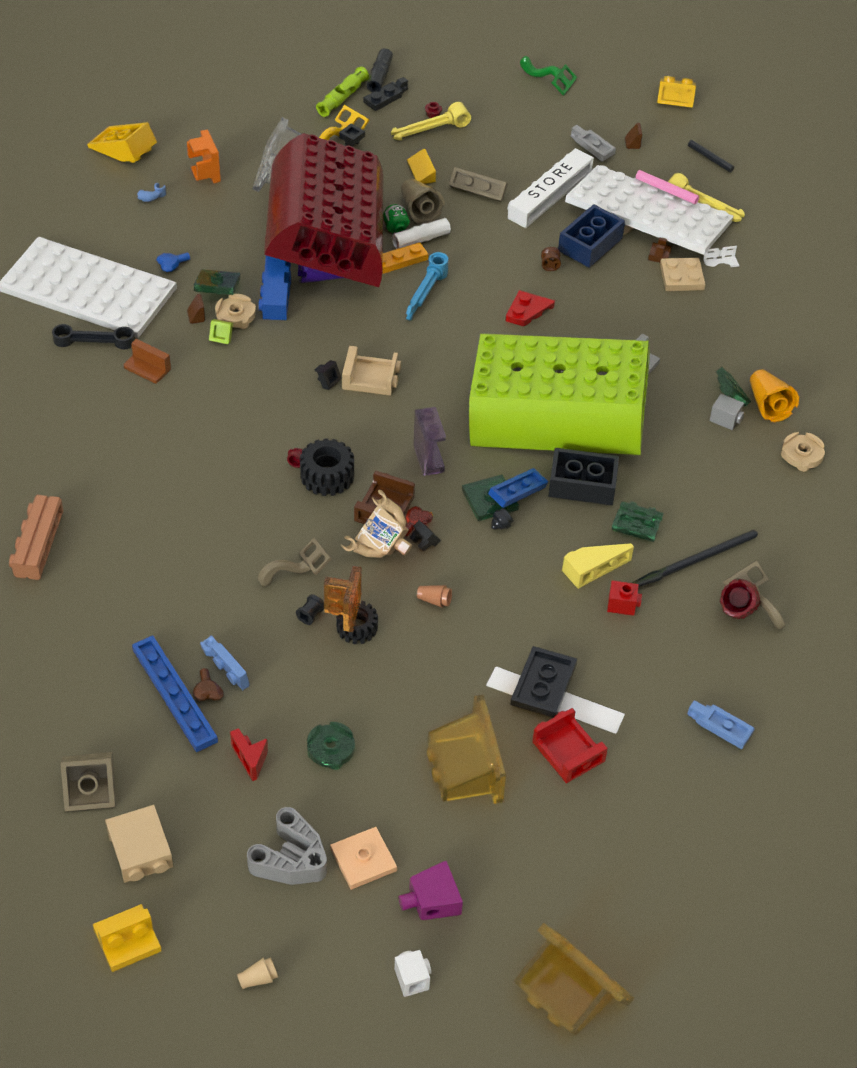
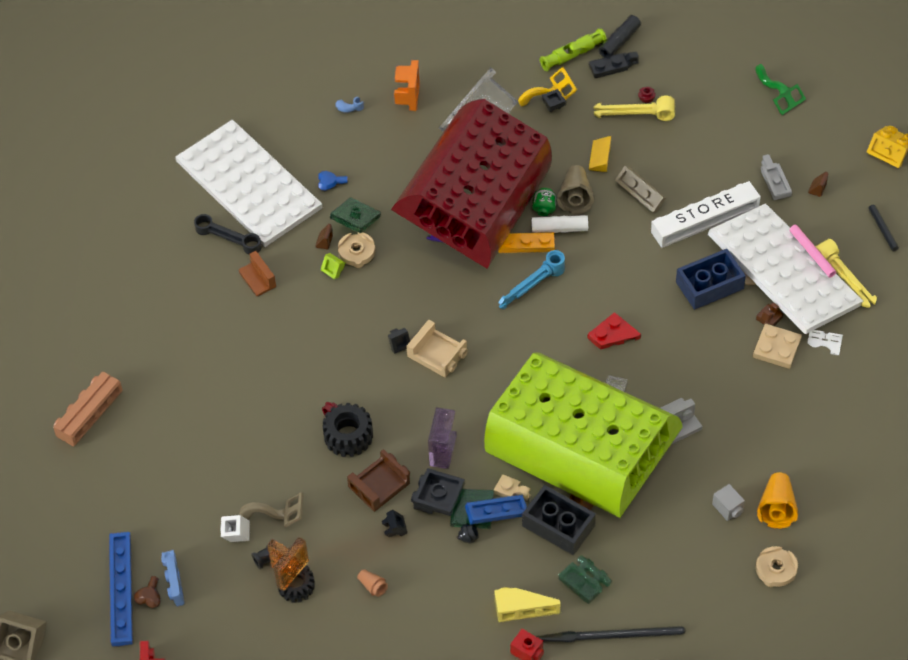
camera: 30 degrees right, 5 degrees up
(124, 141) = (352, 45): yellow slope -> none
(265, 593) = (235, 528): none -> white brick
(275, 289) = (398, 243): blue wedge -> none
(382, 531) = (356, 509): tan torso -> none
(414, 514) = (399, 504): clear red rock -> none
(451, 492) = (437, 492): none -> black plate
(514, 466) = (511, 487): none -> tan plate
(550, 258) = (661, 289): reddish brown wheel -> none
(730, 386) = (746, 479): clear green plate -> none

